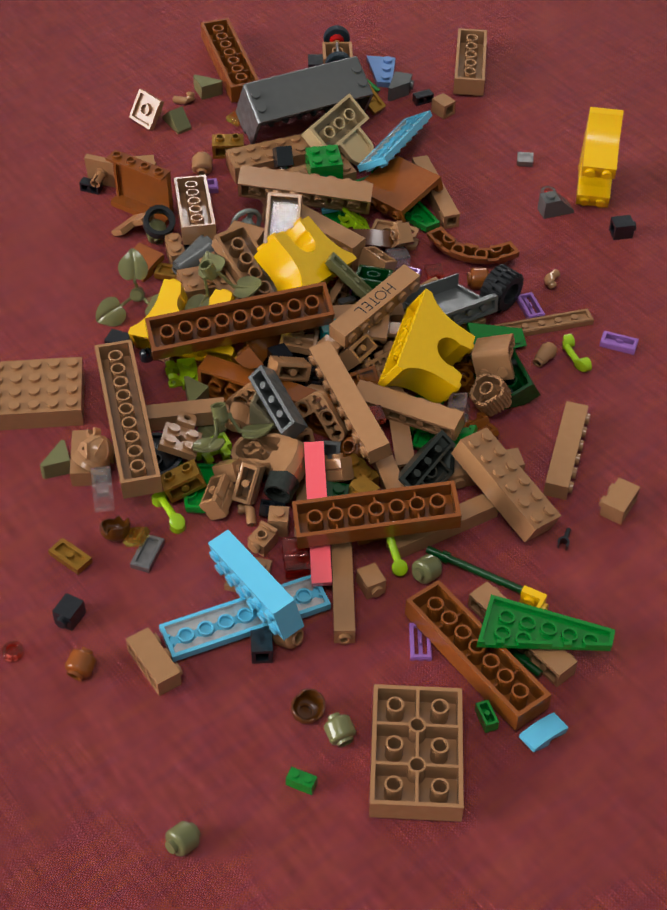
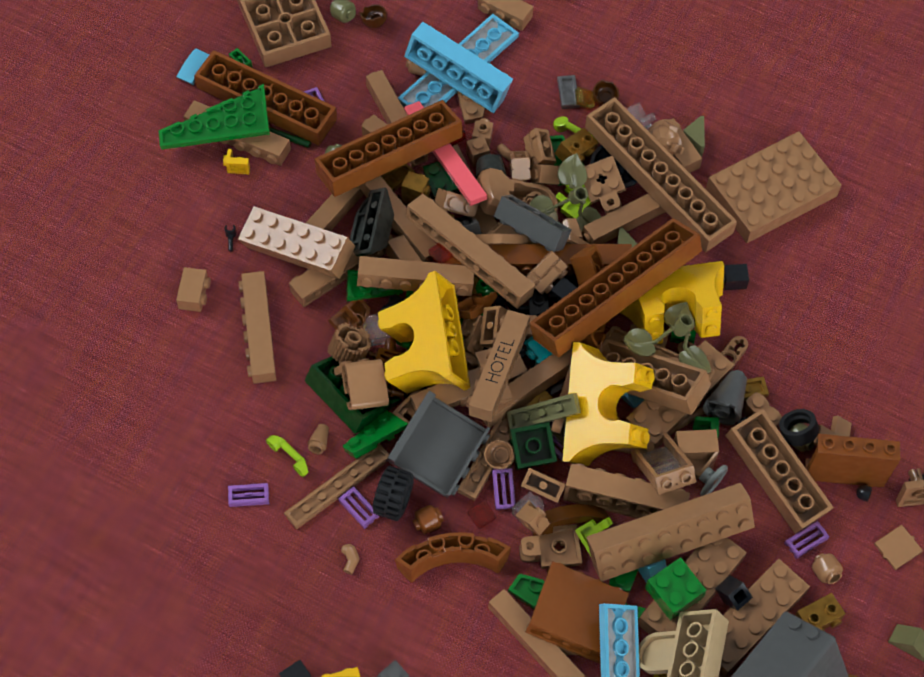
camera: 155 degrees right, 15 degrees up
(69, 612) = (592, 18): black brick -> none
(70, 556) = (624, 62): pearl gold plate -> none
(130, 267) = (767, 315): olive plant -> none
(151, 256) = (784, 392): dark orange slope -> none
(446, 557) = (277, 177): dark green bar -> none

